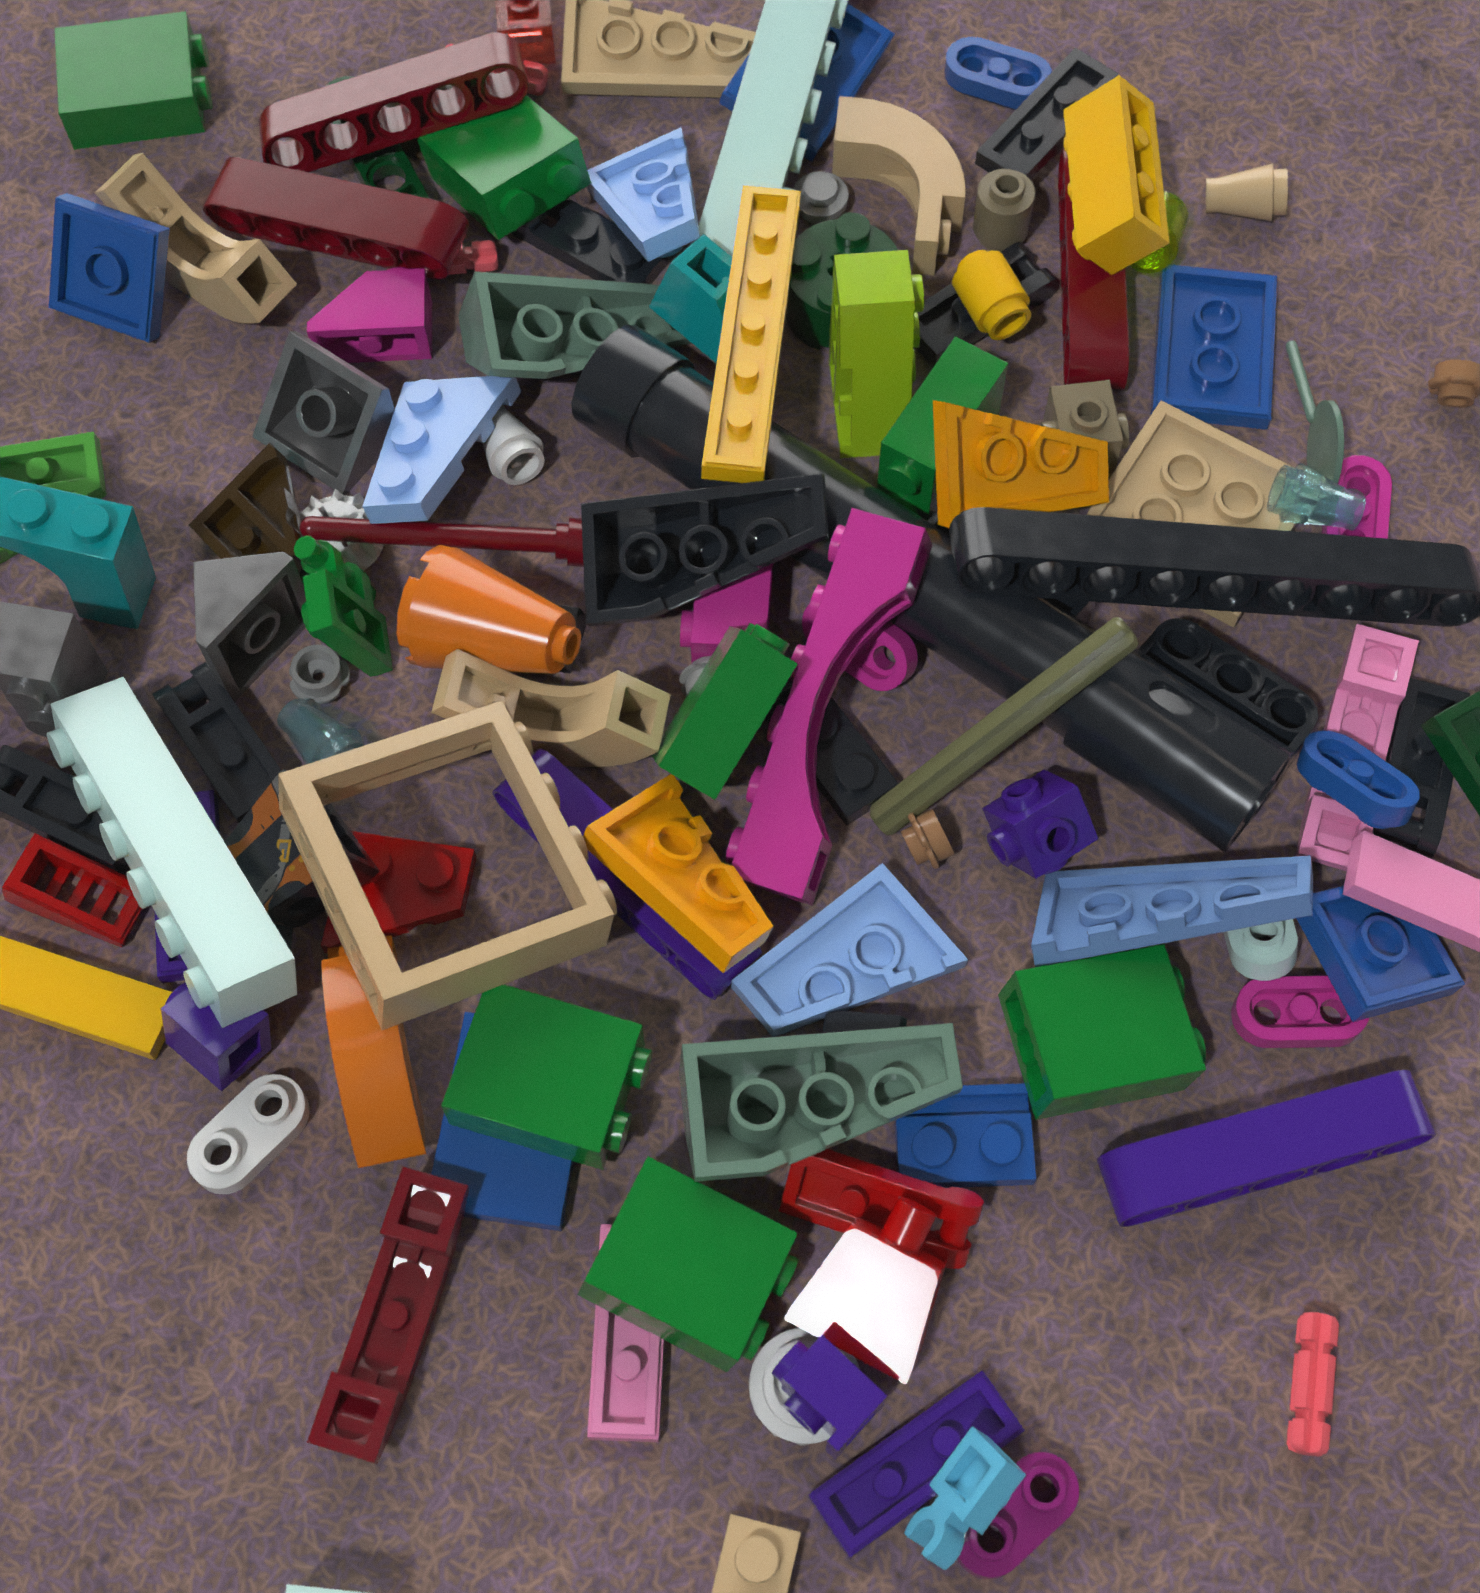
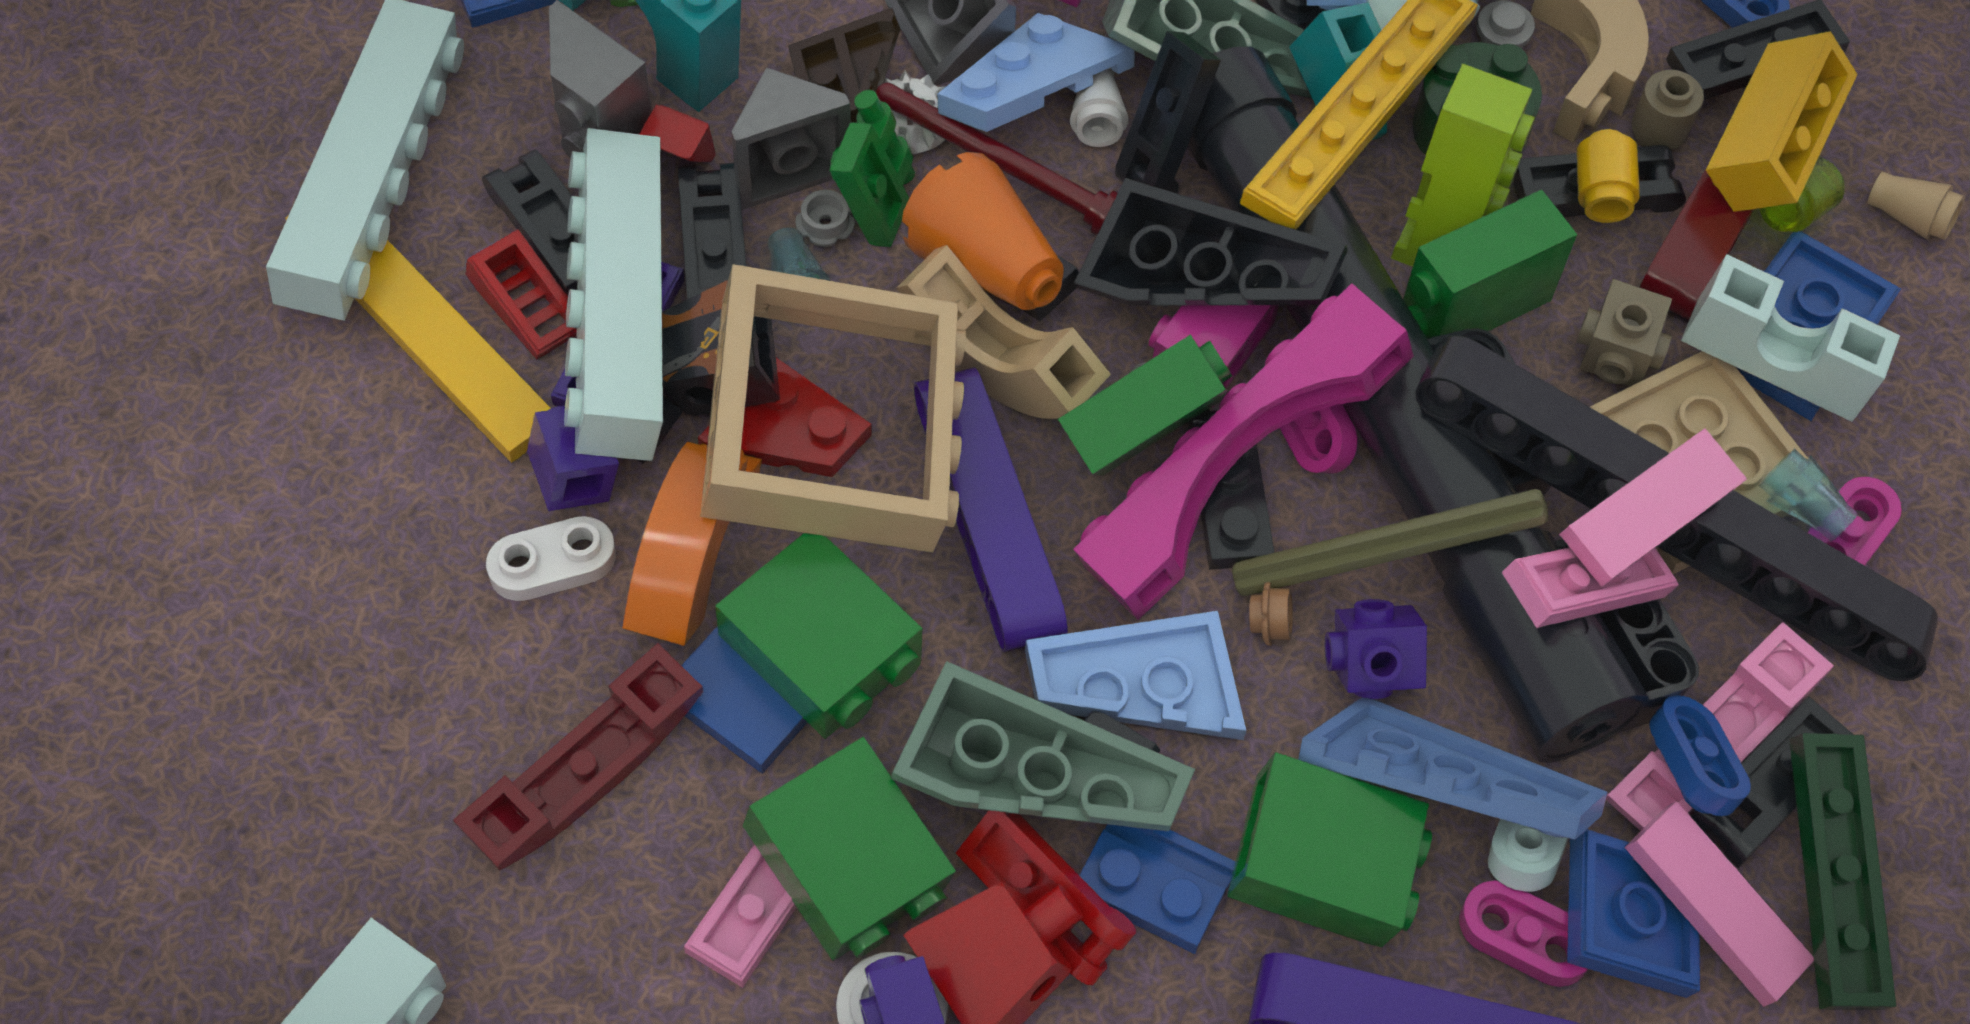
camera: 25 degrees right, 5 degrees down
(138, 662) = (680, 134): none -> red slope
(584, 424) = (1167, 112): none -> black plate
(675, 871) = (1028, 522): light orange wing -> none
(1013, 464) = (1534, 324): light orange wing -> none
(1192, 672) = (1561, 589): none -> bright pink tile
(1214, 582) = (1652, 507): none -> bright pink tile
(1266, 376) = (1825, 365): none -> light aqua arch
(1326, 427) = (1850, 454): sand green piece -> none

